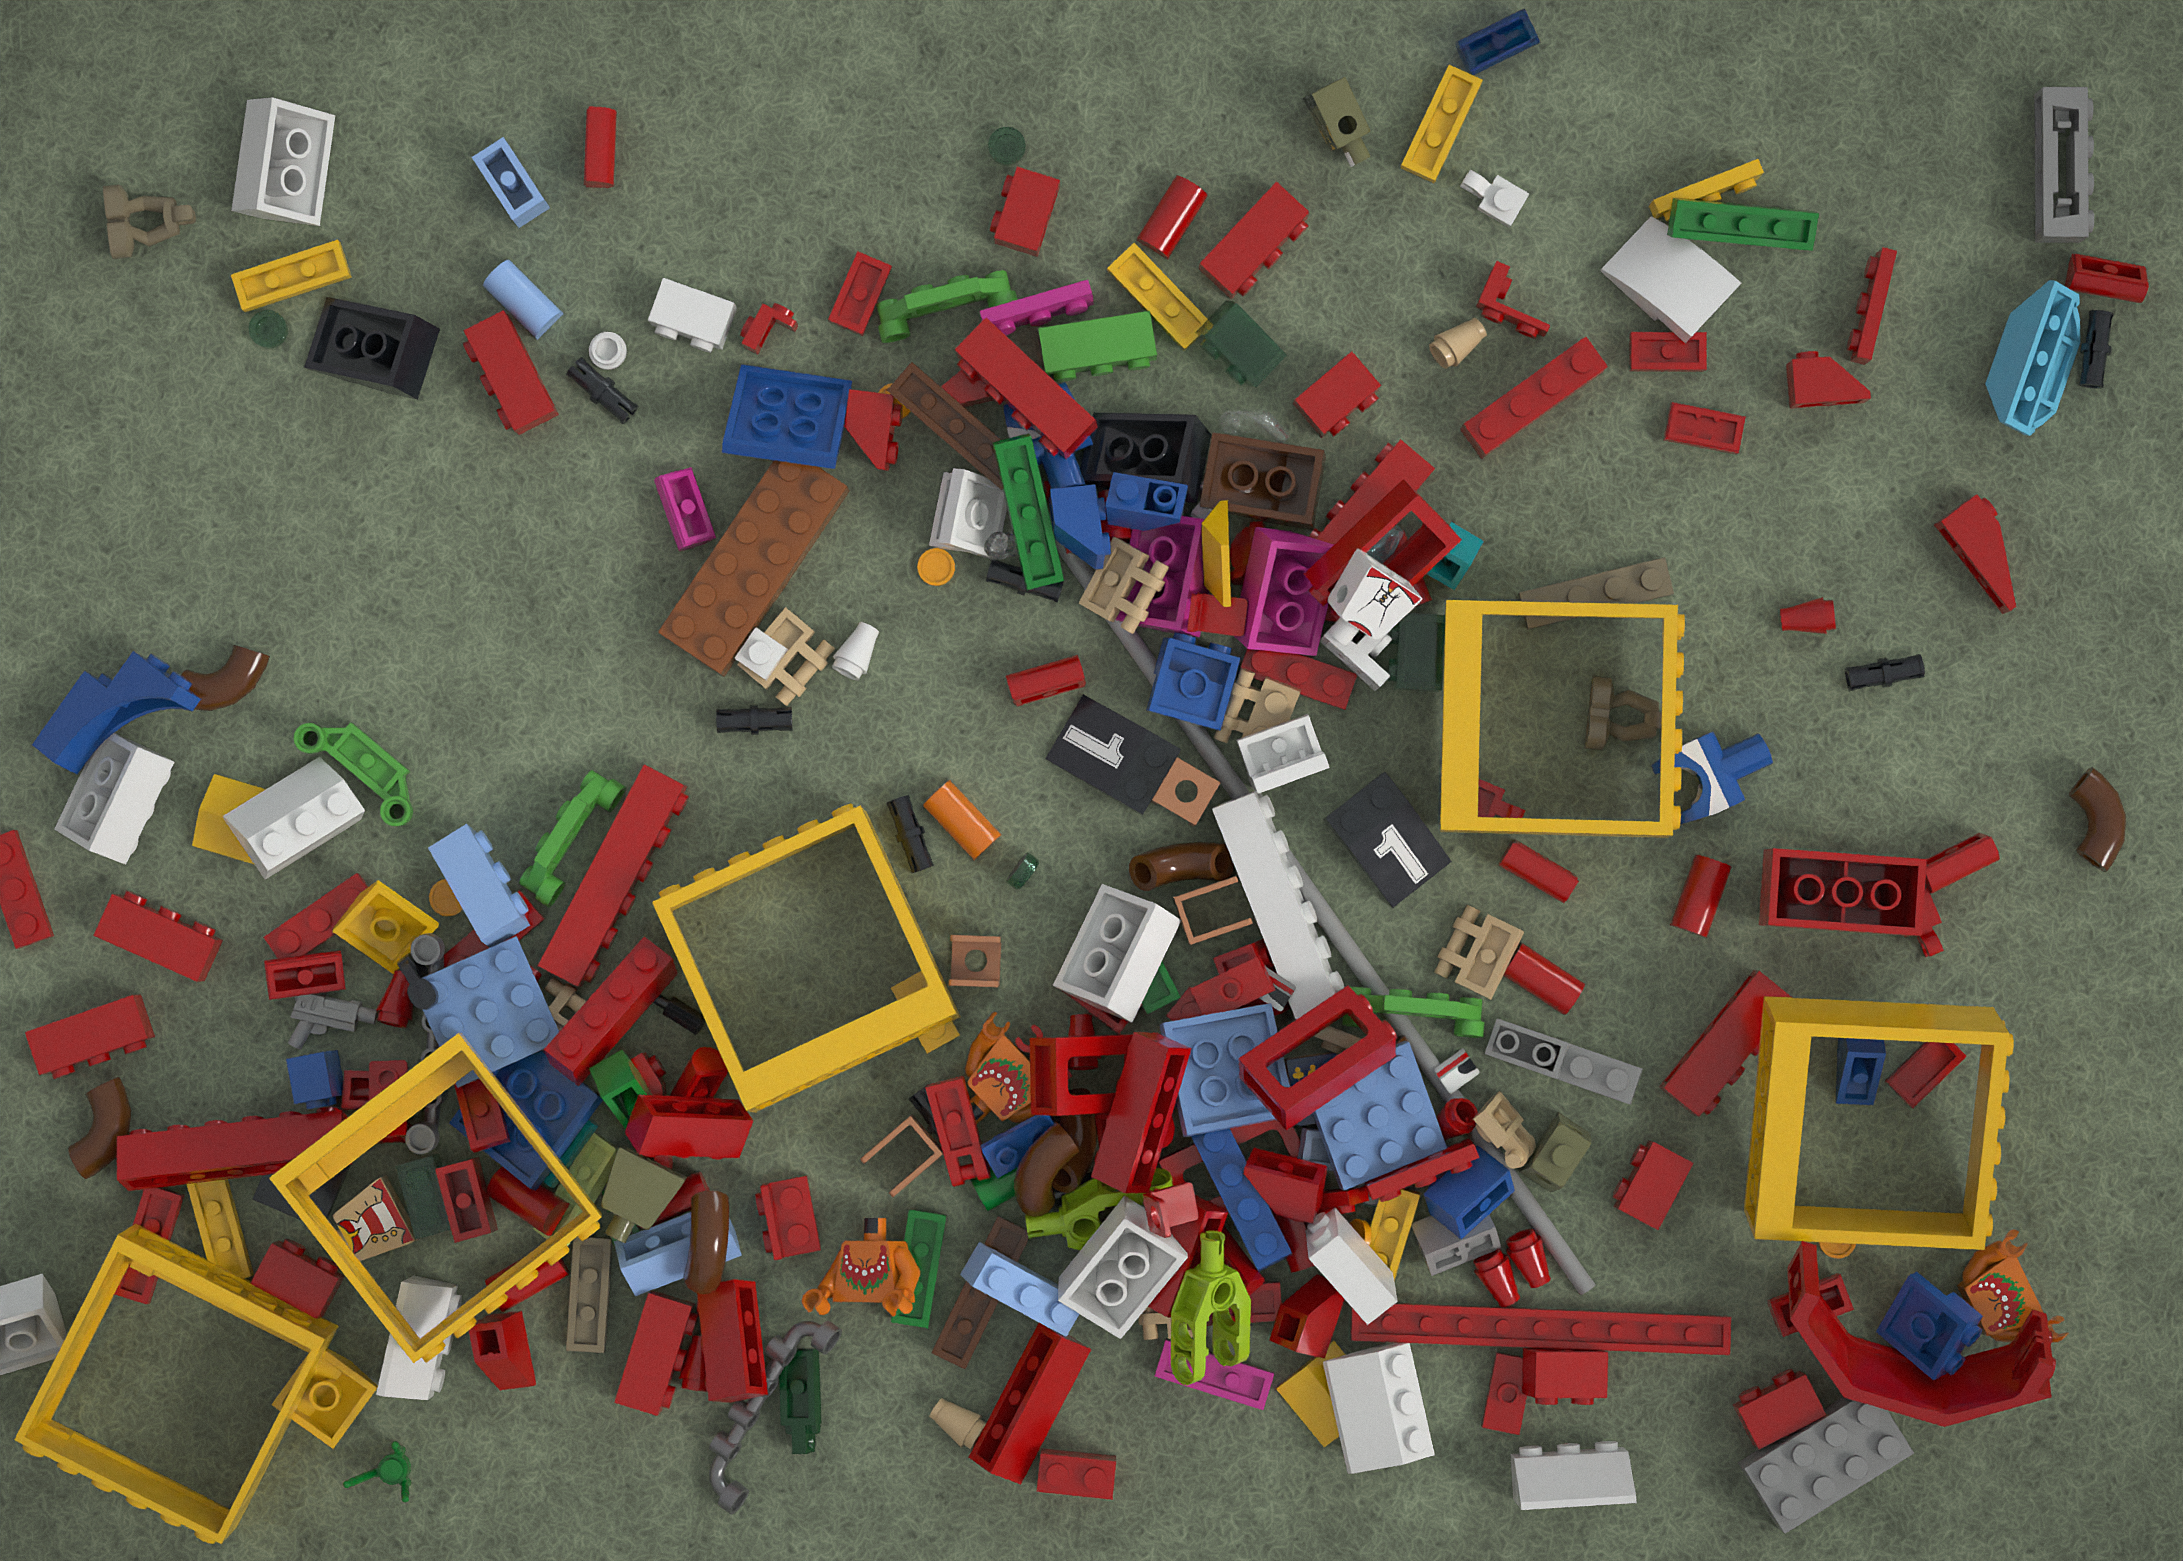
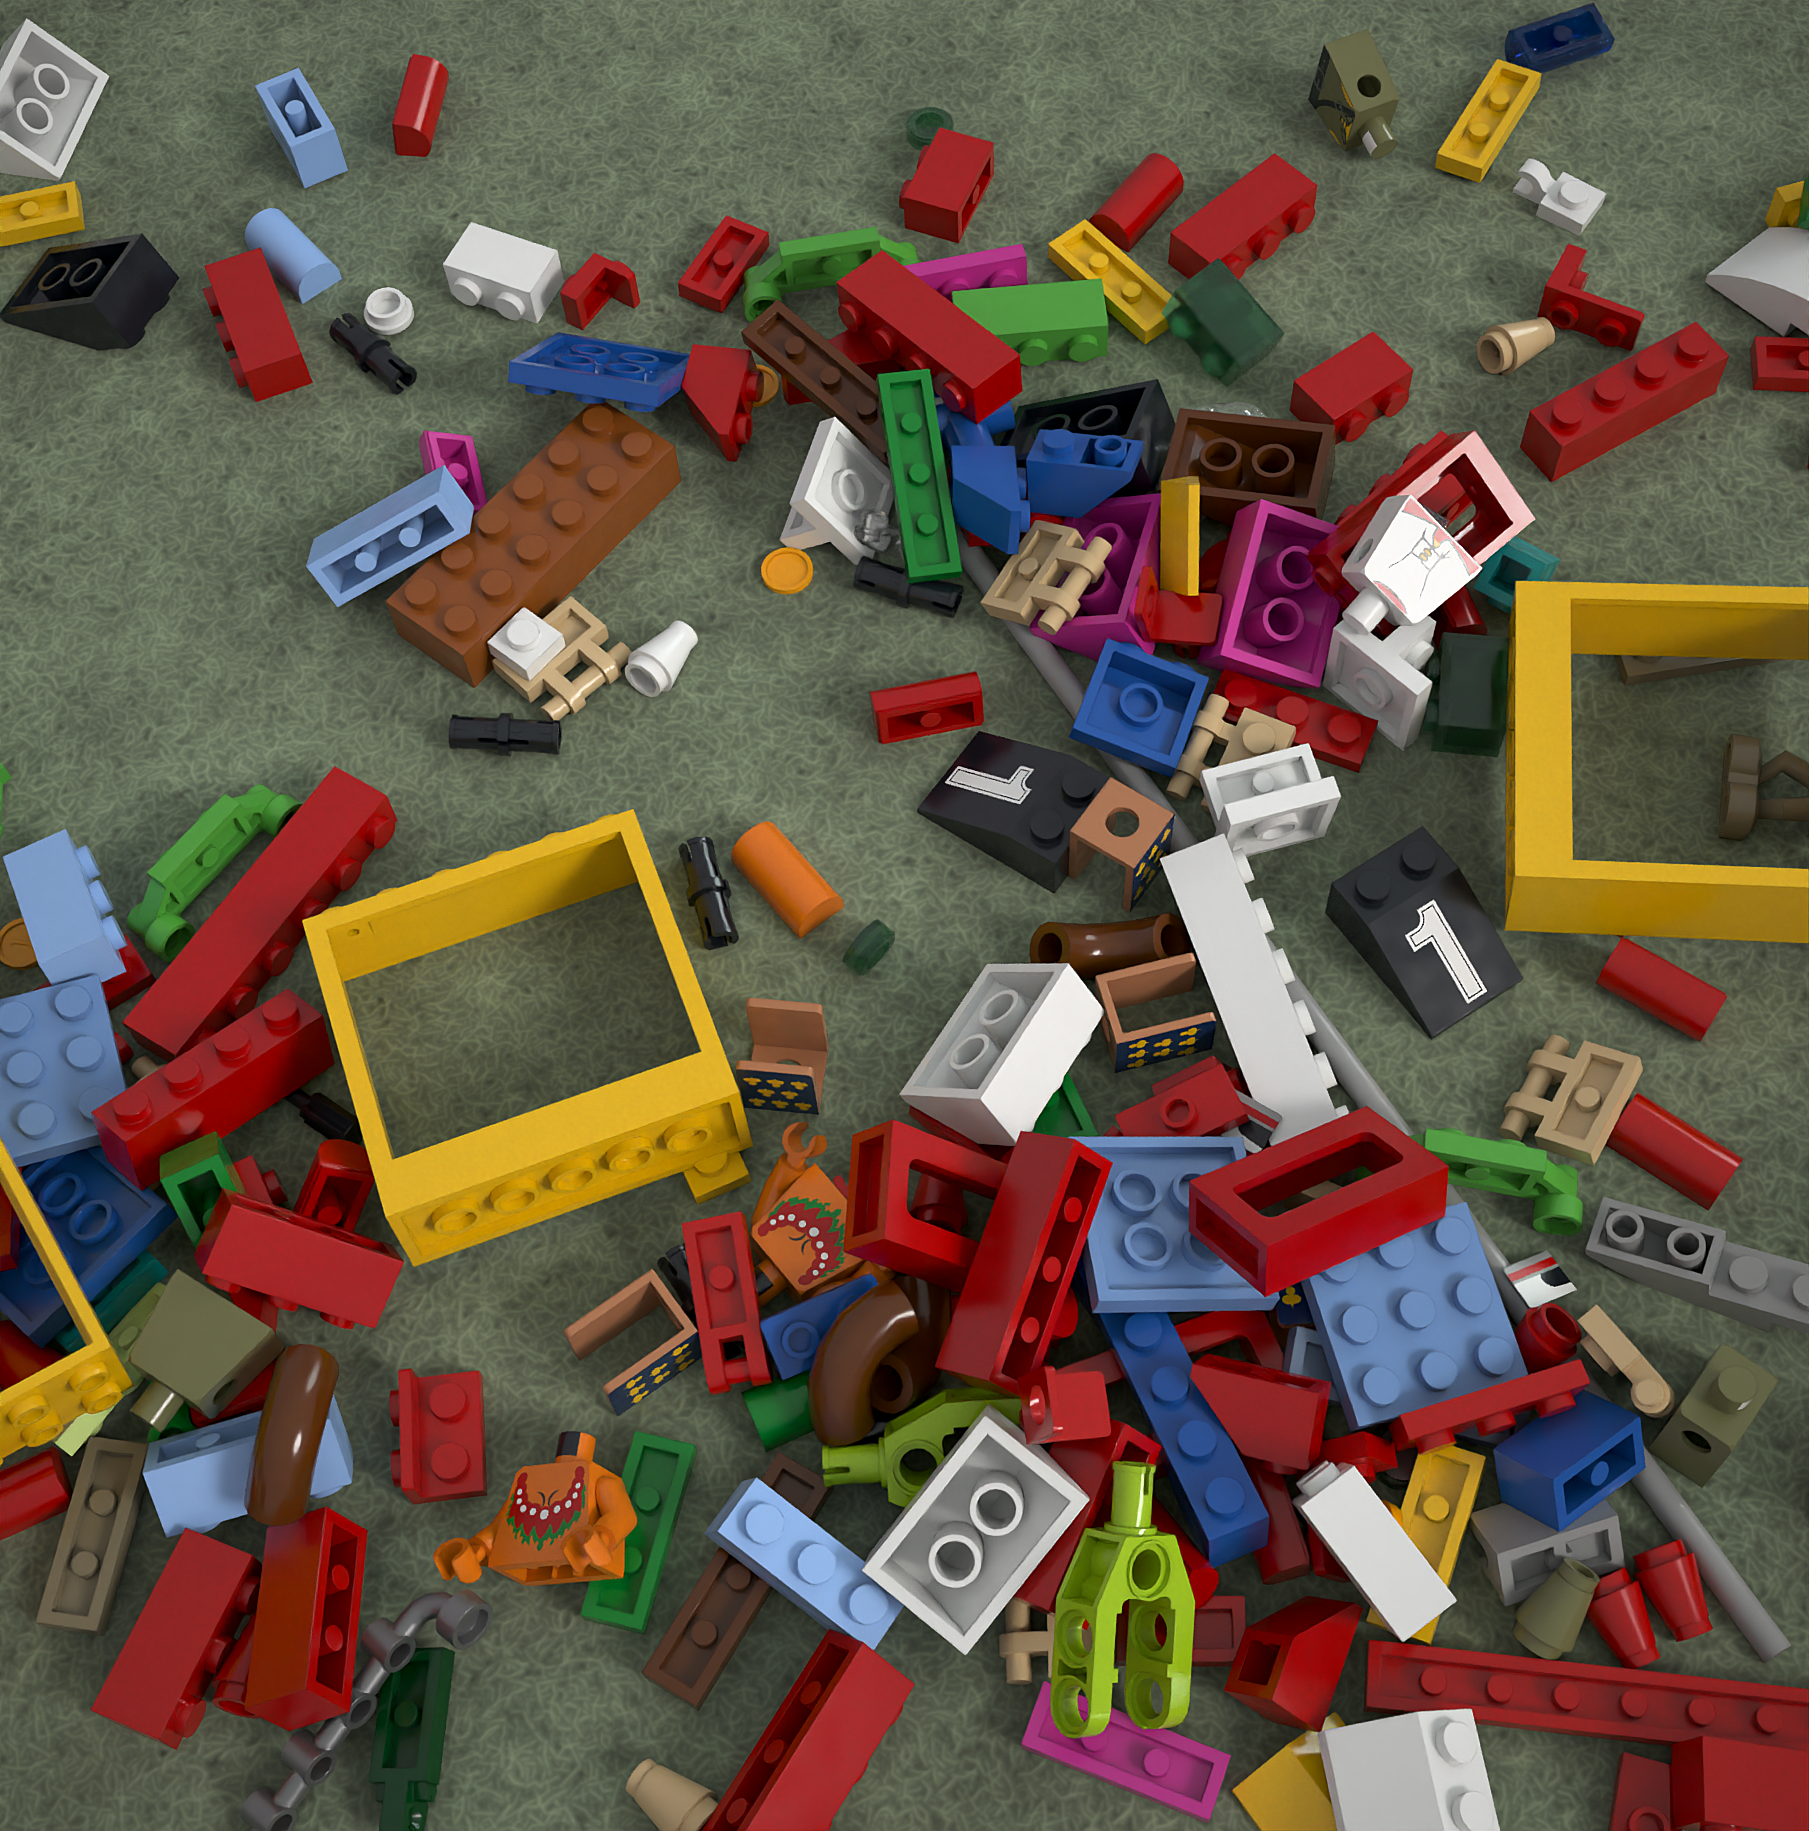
camera: 10 degrees right, 25 degrees down
(652, 576) = (390, 536): none -> light blue brick
(1459, 1279) = (1556, 1610): none -> olive cone

